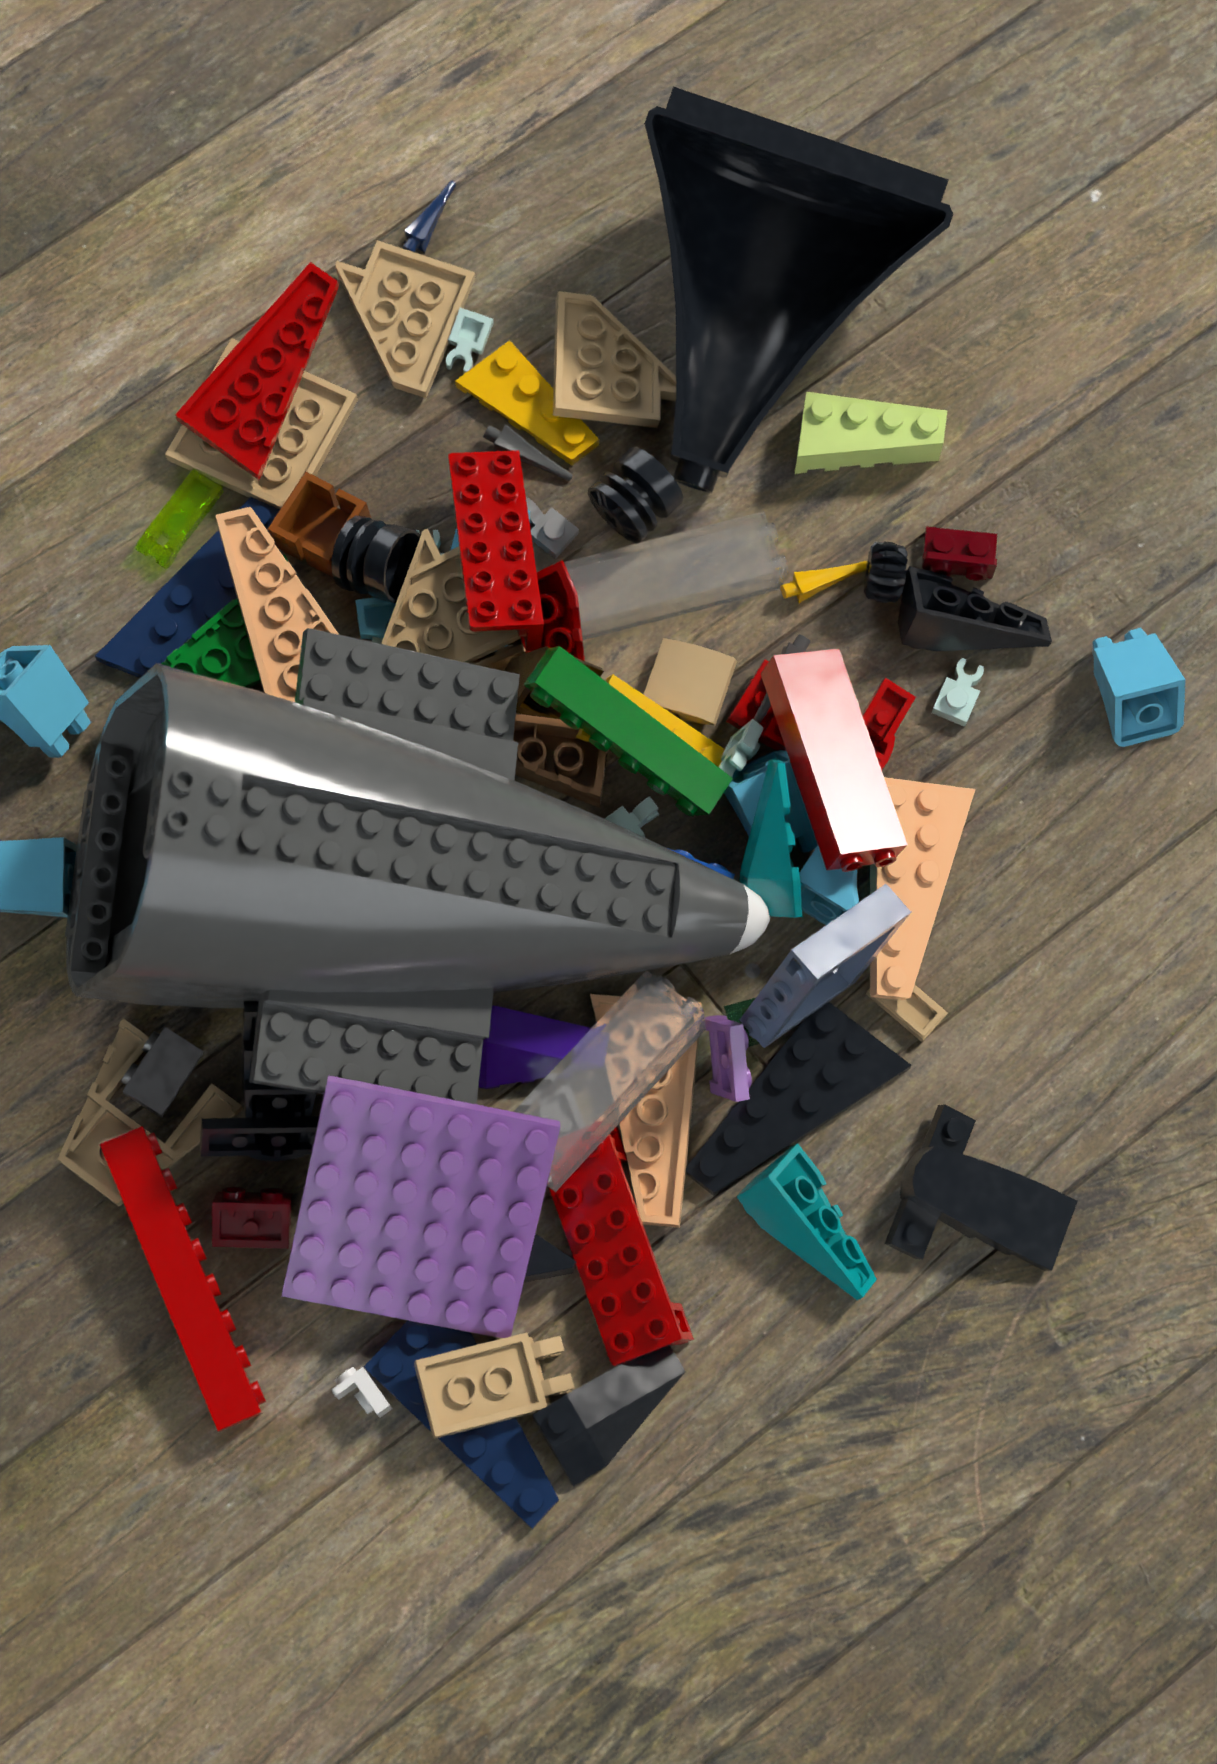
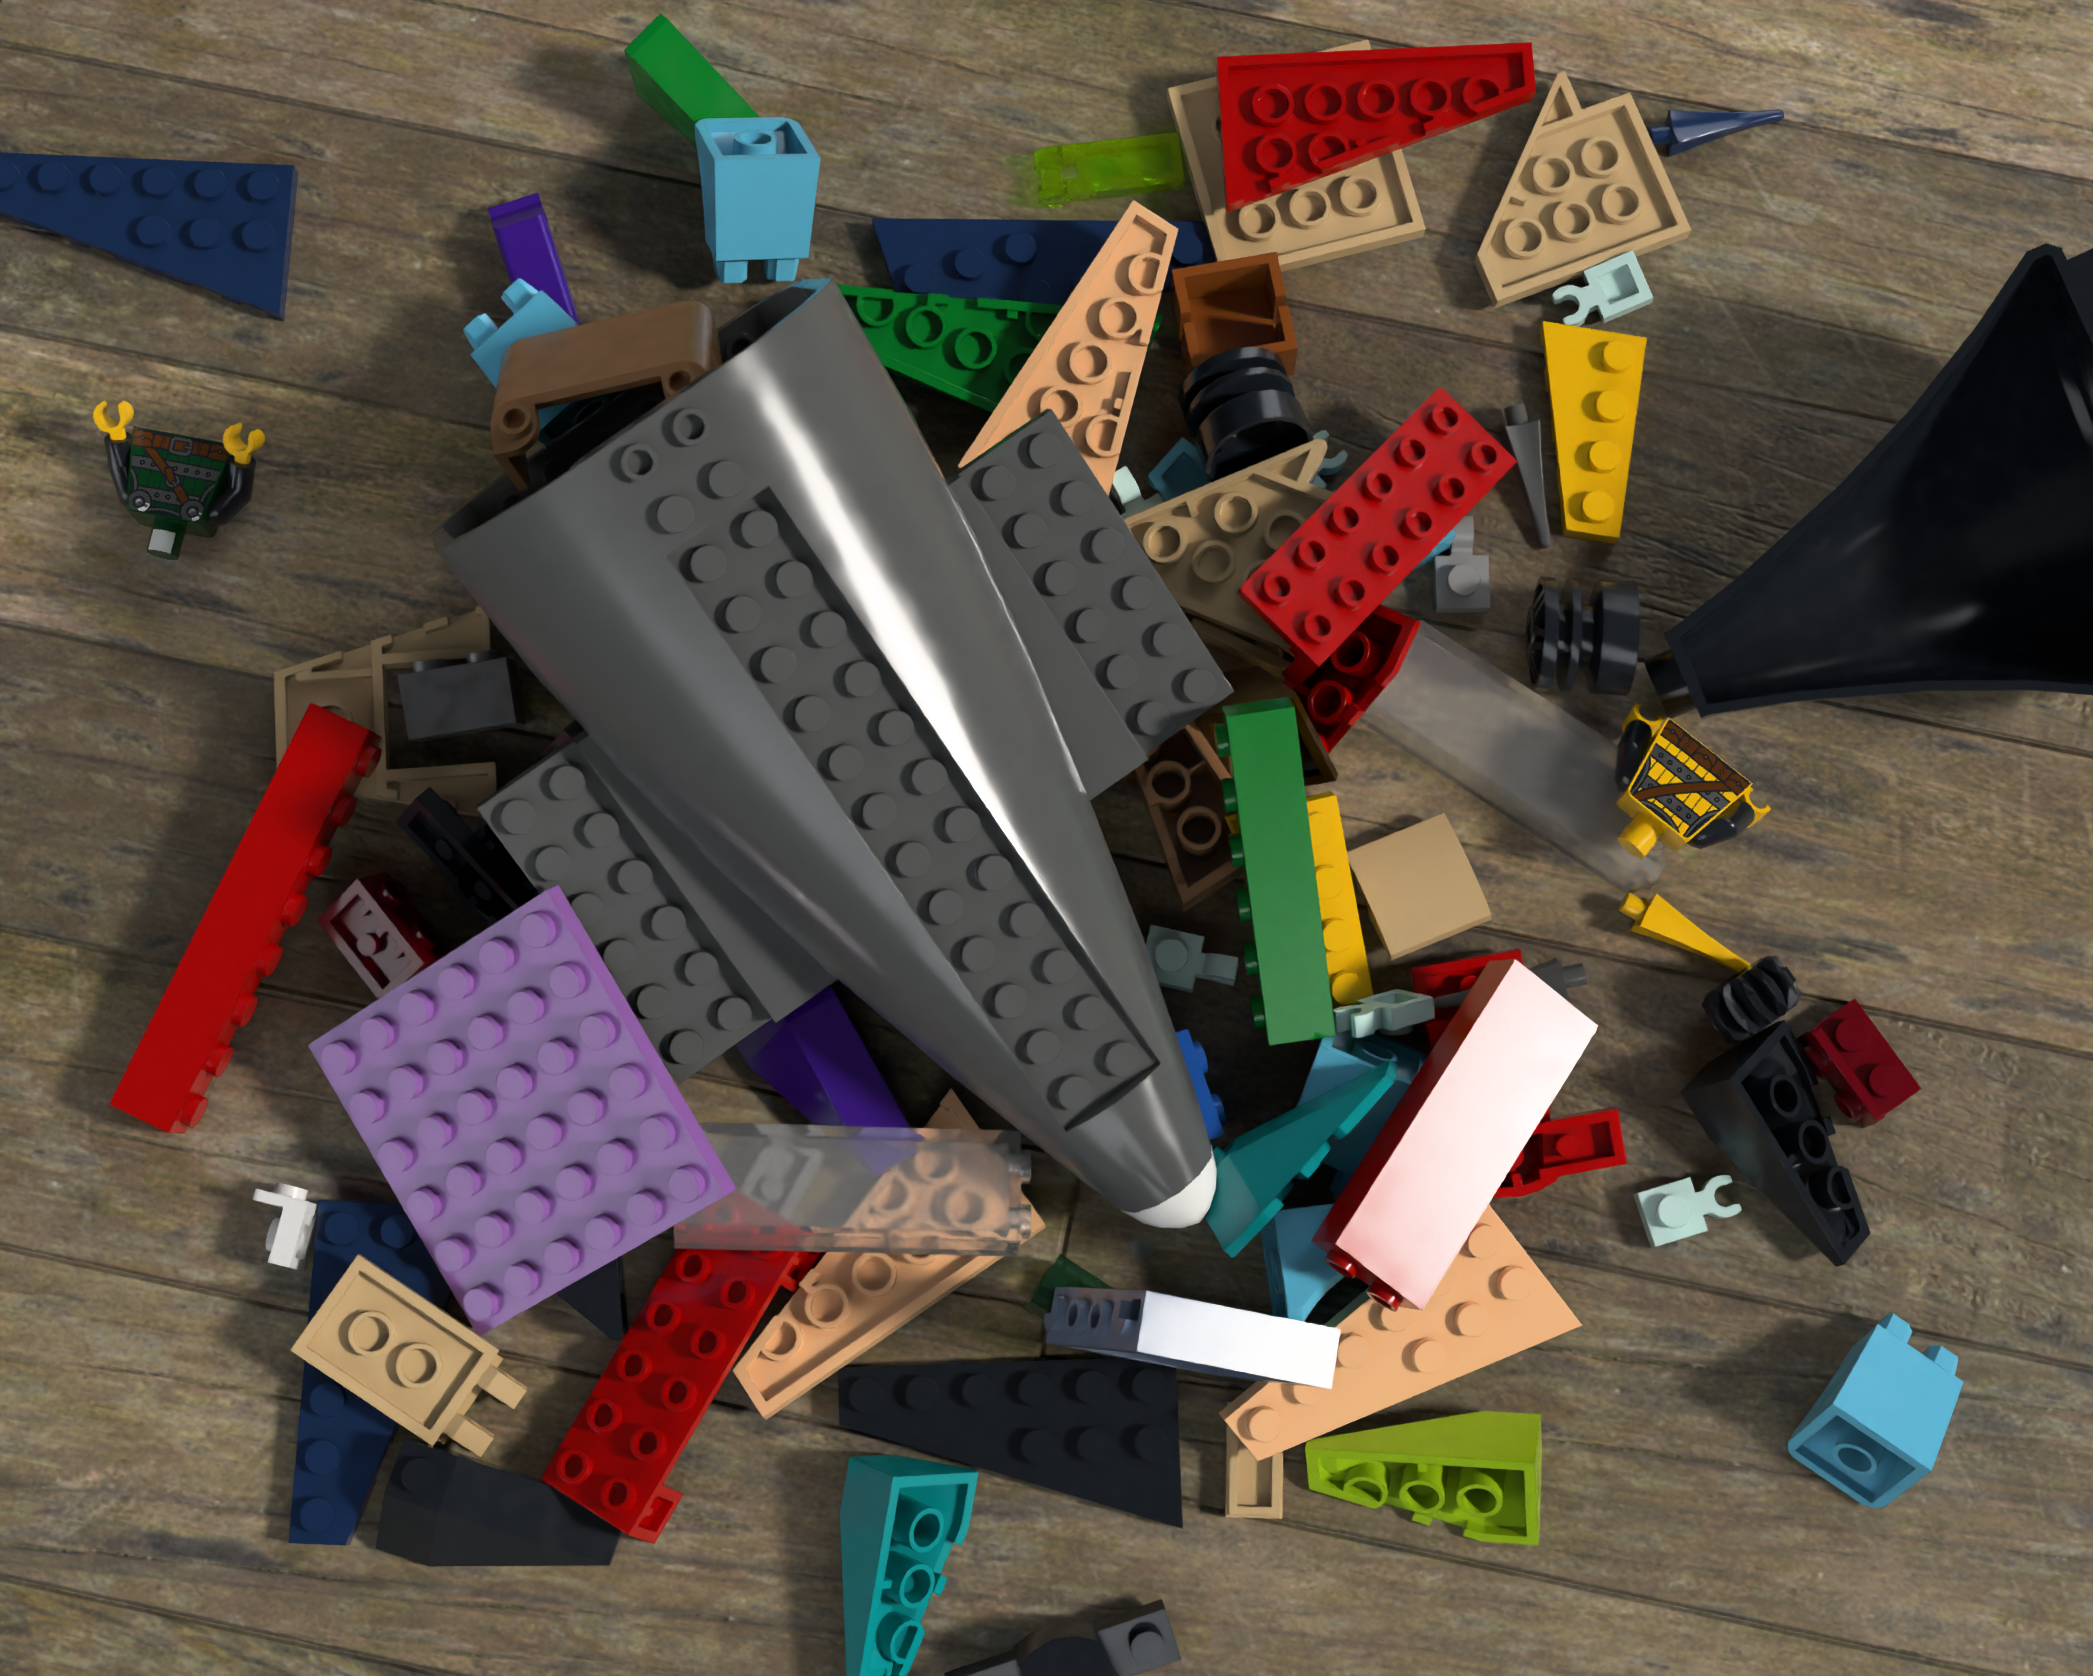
camera: 50 degrees right, 5 degrees up
(62, 837) = (593, 360): none -> medium nougat windscreen
(604, 368) = (1709, 469): tan wing -> none
(728, 1058) = (1014, 1300): medium lavender plate -> none
(751, 515) = (1677, 789): none -> torso
(865, 433) = (1904, 831): yellowish green wedge -> none
(994, 909) = (1458, 1469): none -> lime wedge

